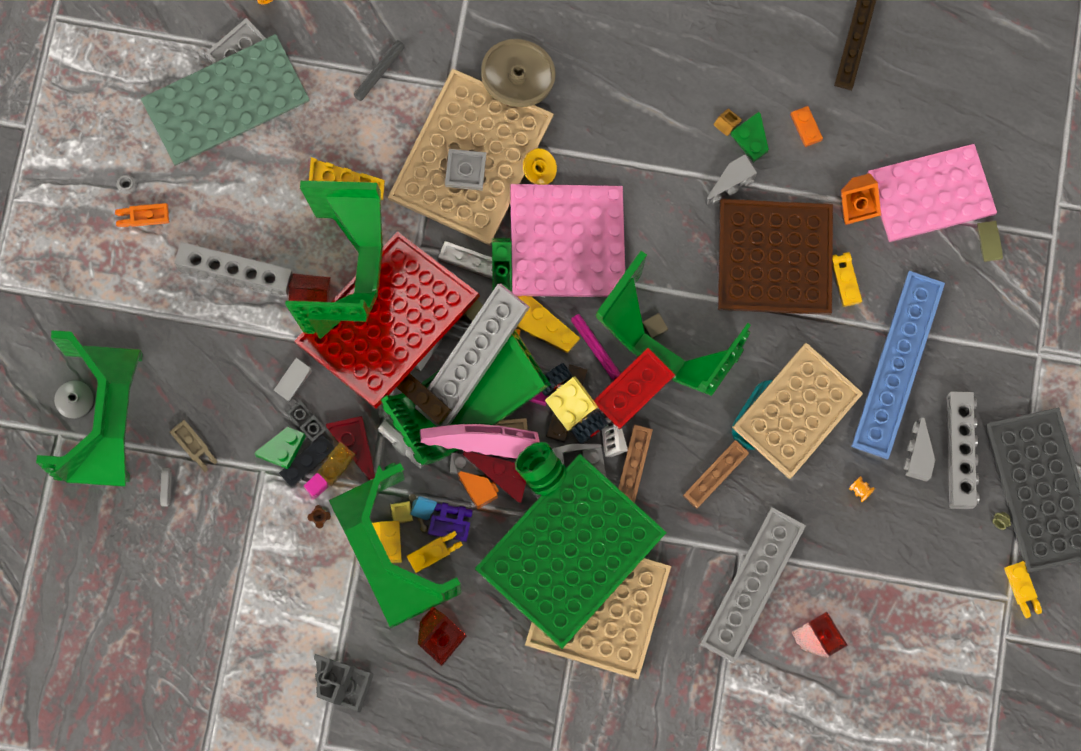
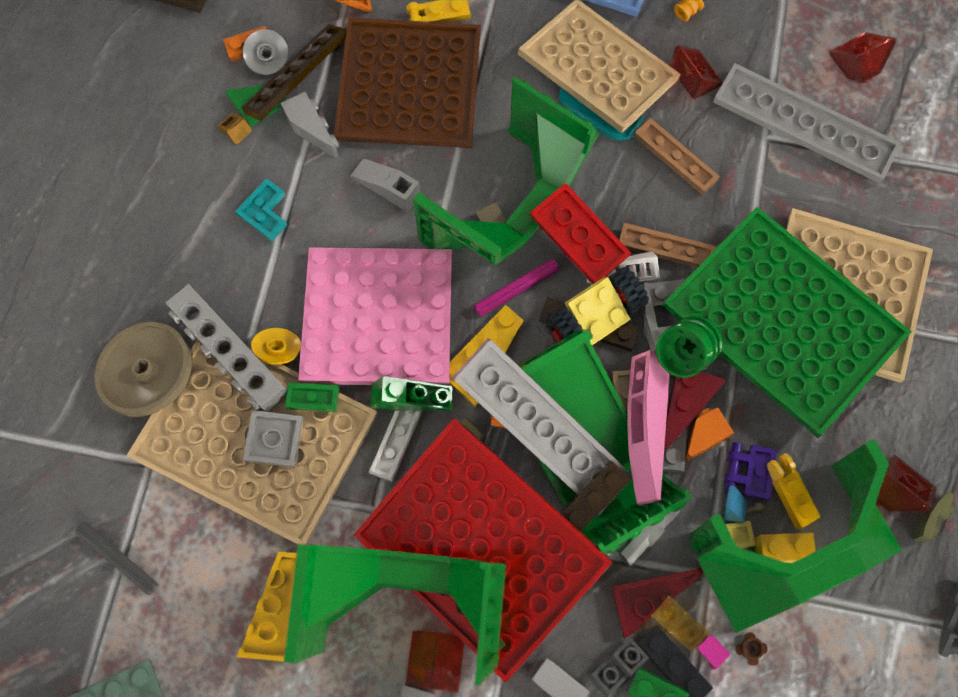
camera: 80 degrees left, 5 degrees down
(421, 662) = (941, 509): none -> olive slope
(498, 195) = (312, 397): none -> green plate
(503, 166) = (188, 302): none -> light grey brick
(653, 145) = (257, 210): none -> teal plate
(680, 242) = (387, 183): none -> light grey slope
(776, 164) = (294, 72): none -> dark brown plate
(789, 134) = (263, 41): none -> light grey dish
(798, 494) = (695, 71): none -> clear red slope

